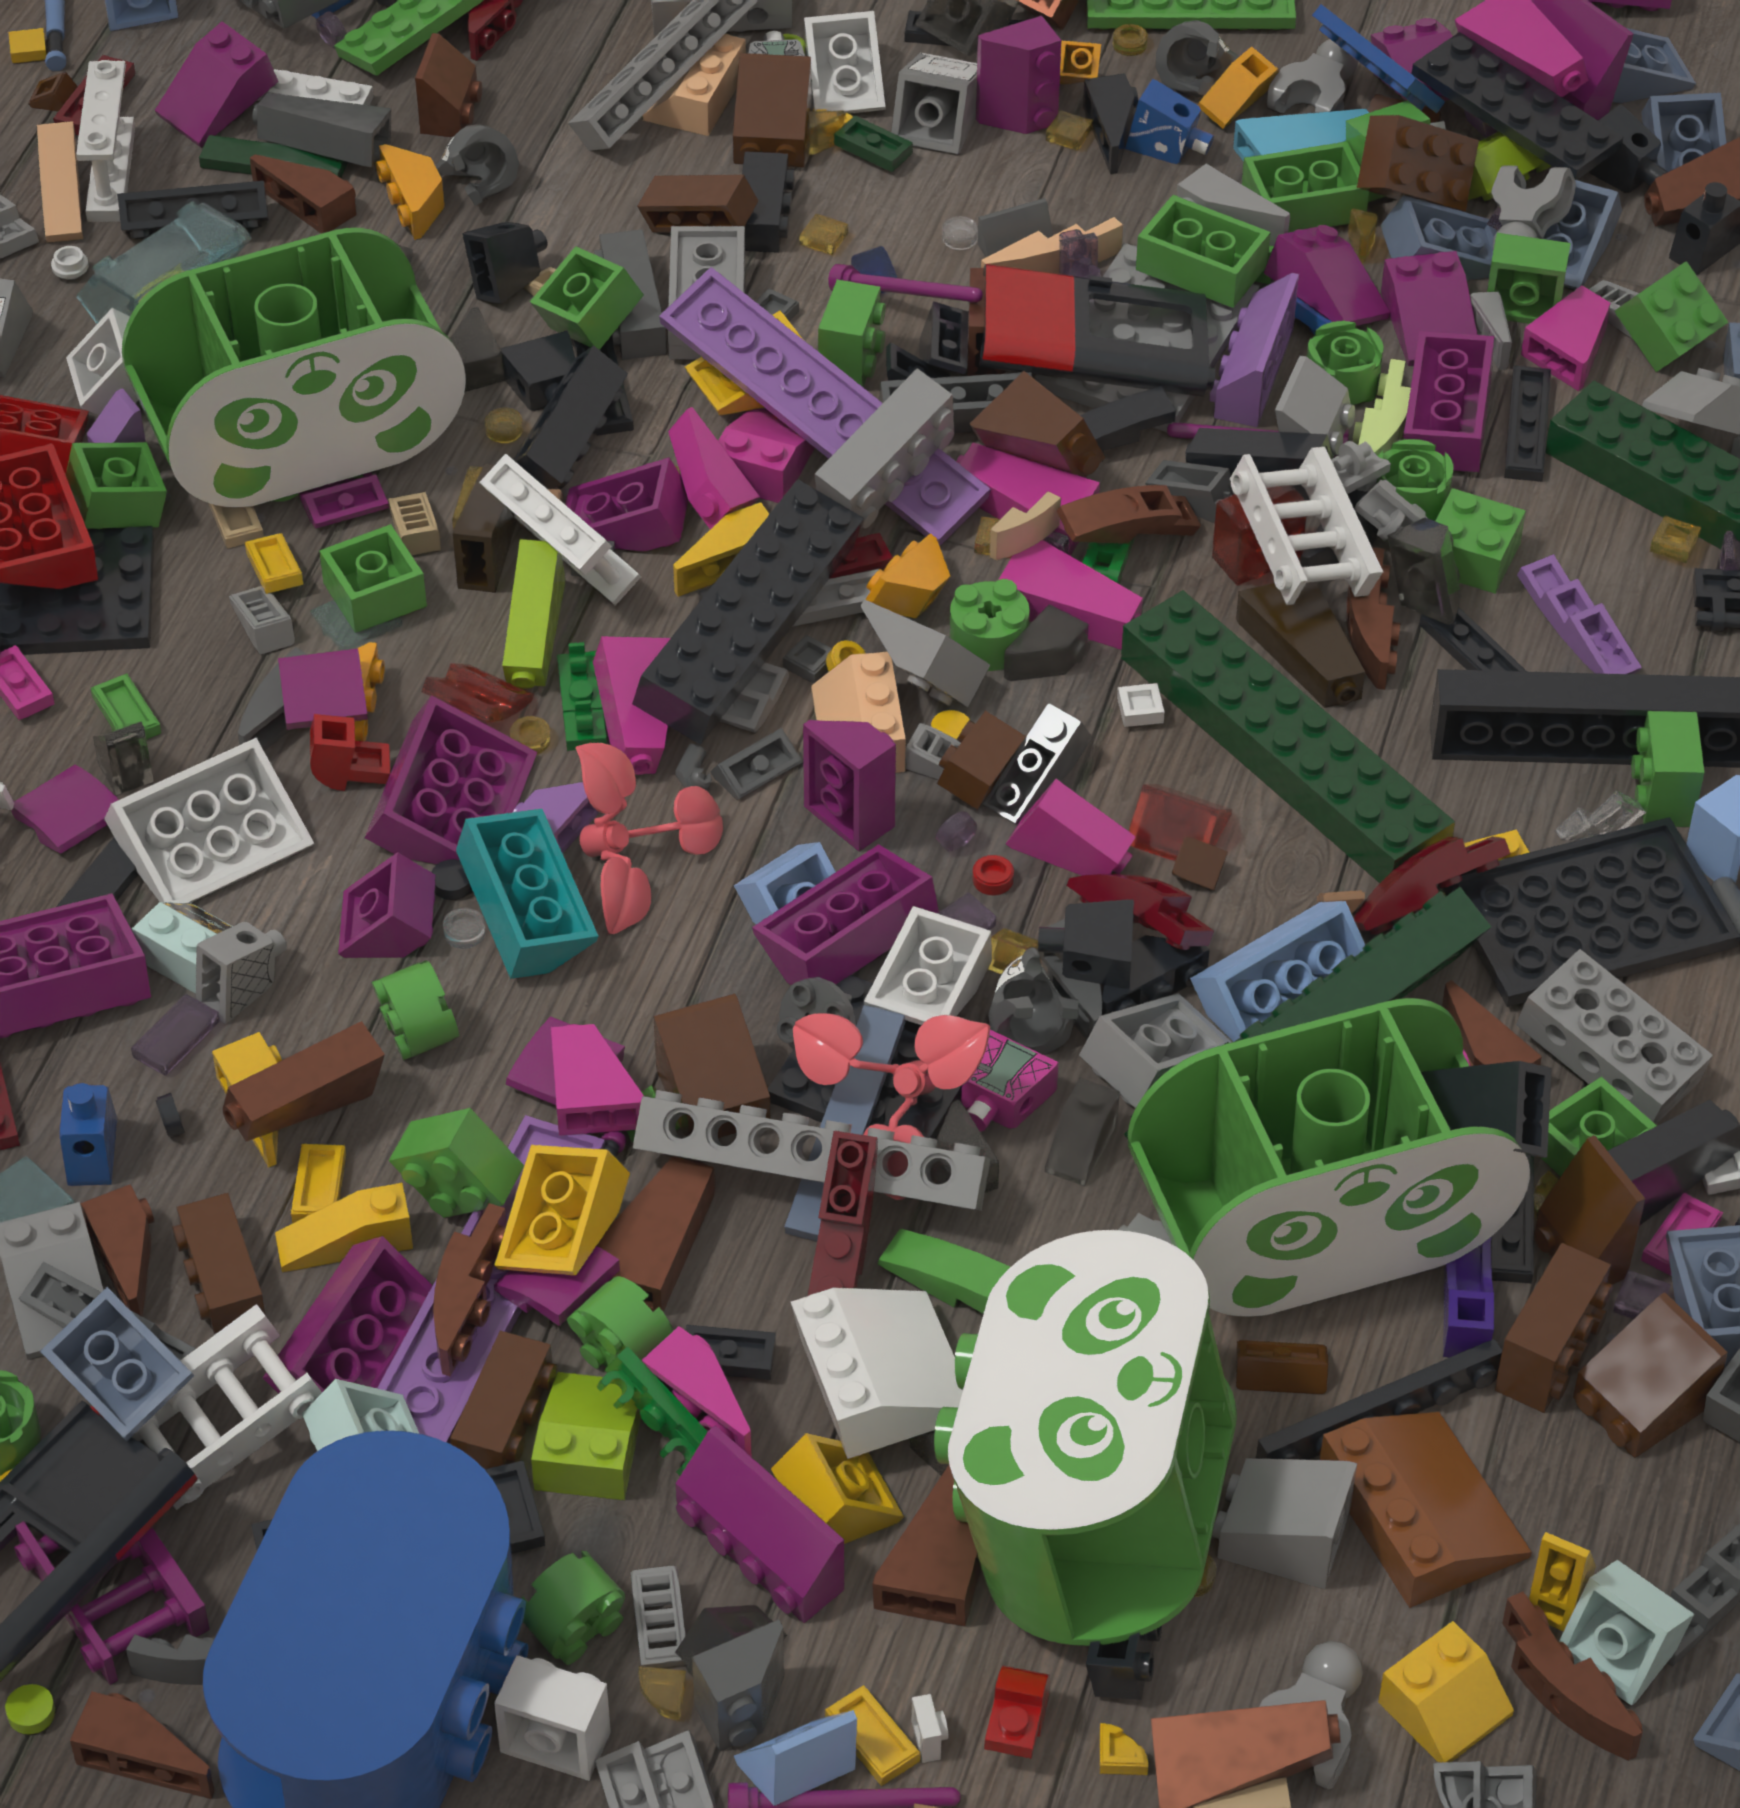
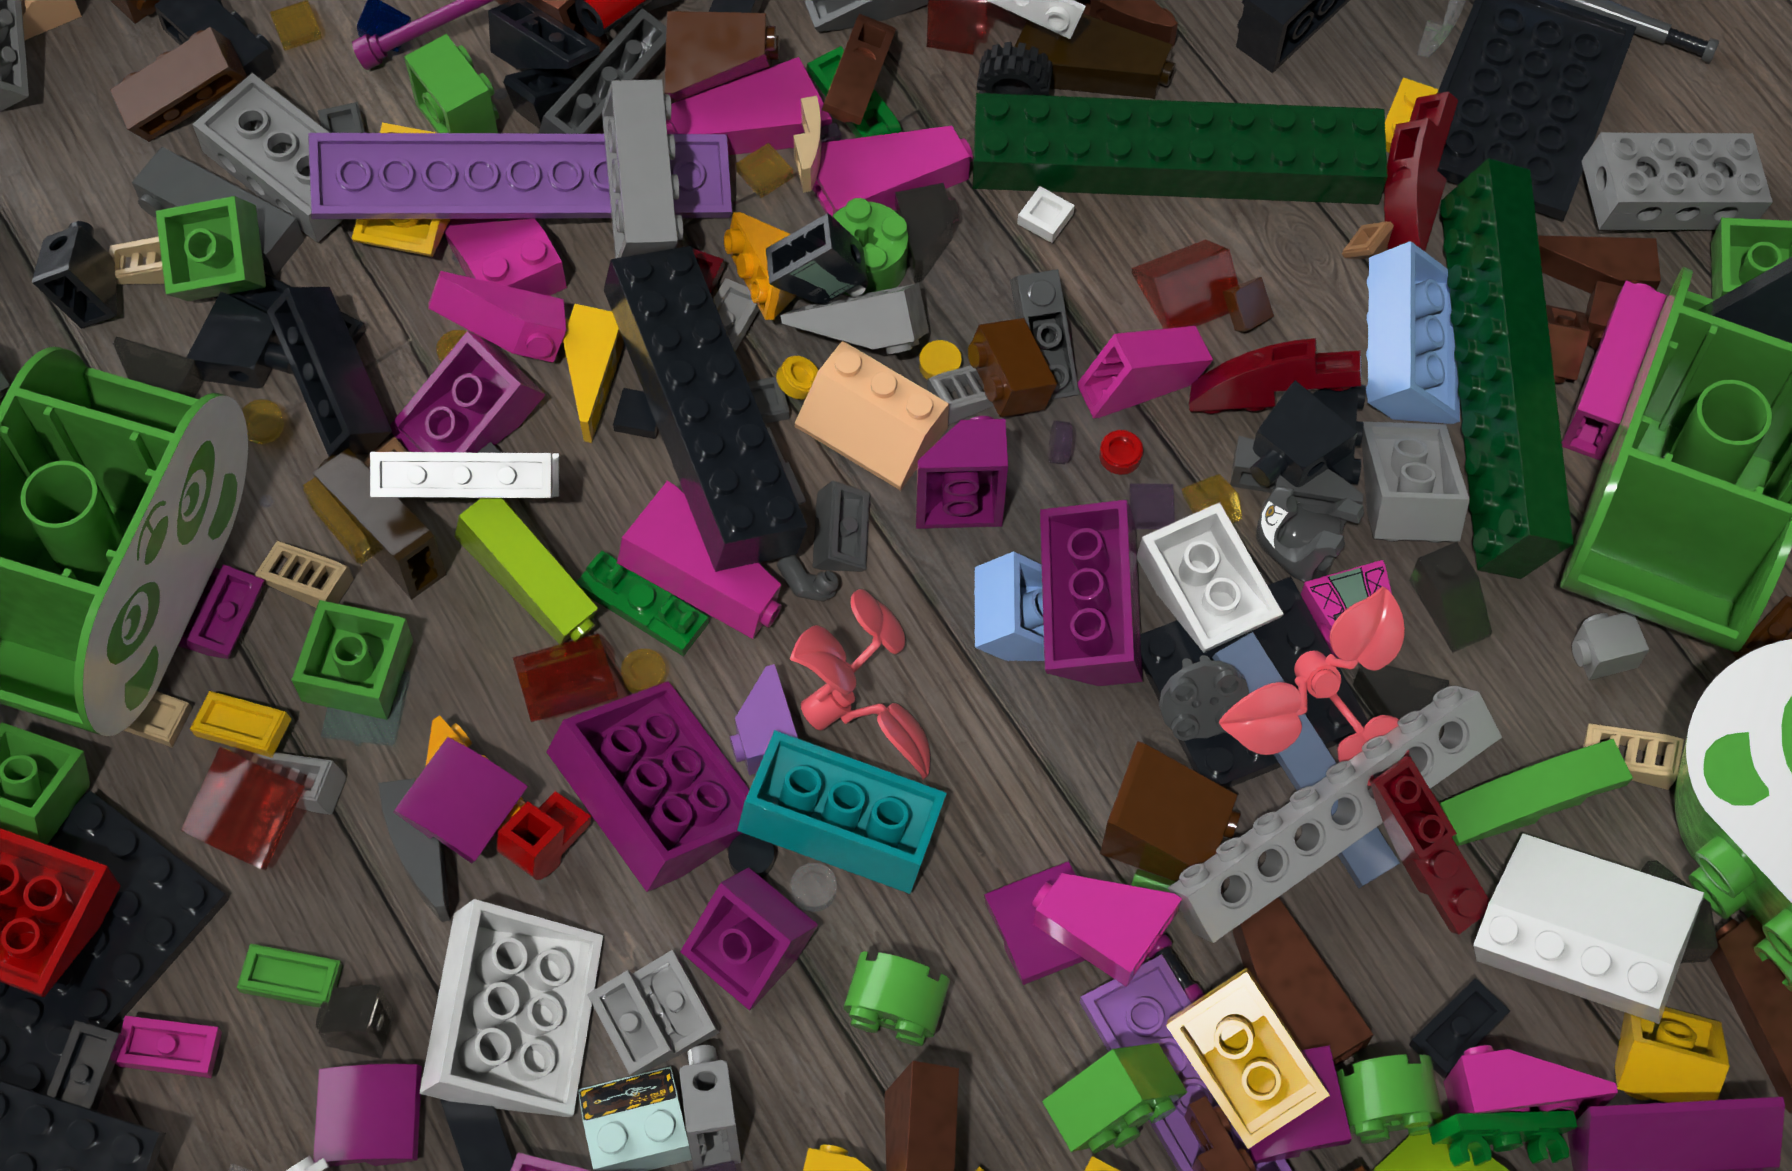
camera: 50 degrees left, 15 degrees up
(213, 600) = (242, 808): none -> clear red slope
(285, 901) = (653, 1013): none -> light grey slope
(925, 586) = (818, 262): none -> black torso
(1230, 602) = (1014, 71): none -> black tyre

